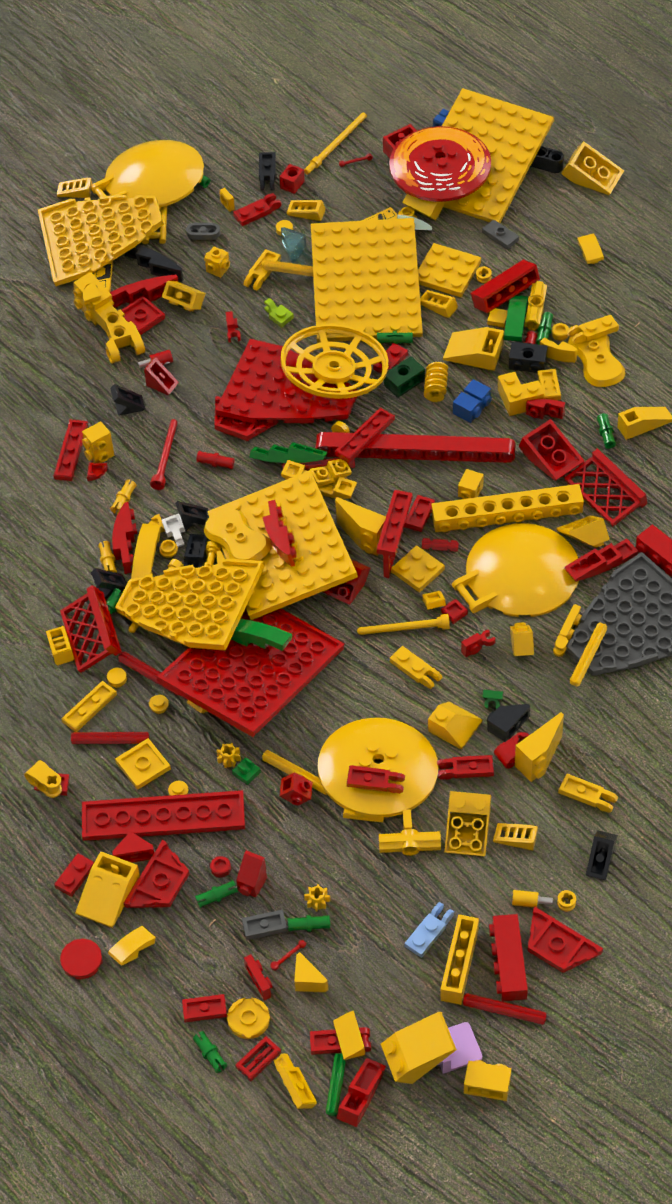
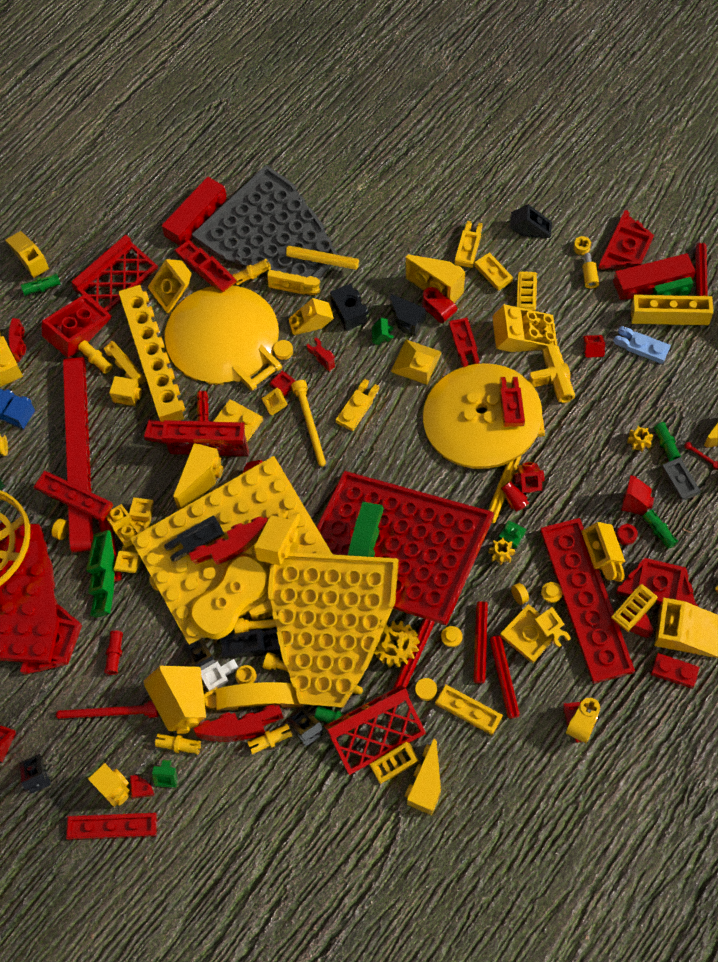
camera: 100 degrees left, 10 degrees up
(32, 662) = (427, 787): none -> yellow slope
(100, 484) = (165, 775): none -> green tile
(141, 774) = (550, 624): none -> yellow plate
(141, 852) = (646, 594): none -> yellow slope
(147, 725) = (480, 642): none -> red axle
(156, 491) = (177, 696): none -> yellow slope
(159, 655) = (406, 641): none -> yellow gear
(183, 762) = (520, 593): none -> yellow tile
(203, 837) = (605, 550): none -> yellow hinge
(271, 563) = (277, 538): none -> yellow hinge
(275, 775) = (514, 497): none -> red cone
(292, 511) = (198, 535): none -> black hinge
(439, 885) = (594, 346): none -> red slope
(488, 979) = (675, 288): none -> green plate
(492, 615) = (283, 349): none -> yellow tile
(504, 485) = (124, 362): none -> yellow hinge
(514, 466) = (95, 356): none -> yellow pin
(534, 665) = (349, 316): none -> black brick
(547, 808) = (493, 271): none -> yellow plate
(585, 595) = (252, 271): none -> yellow pin

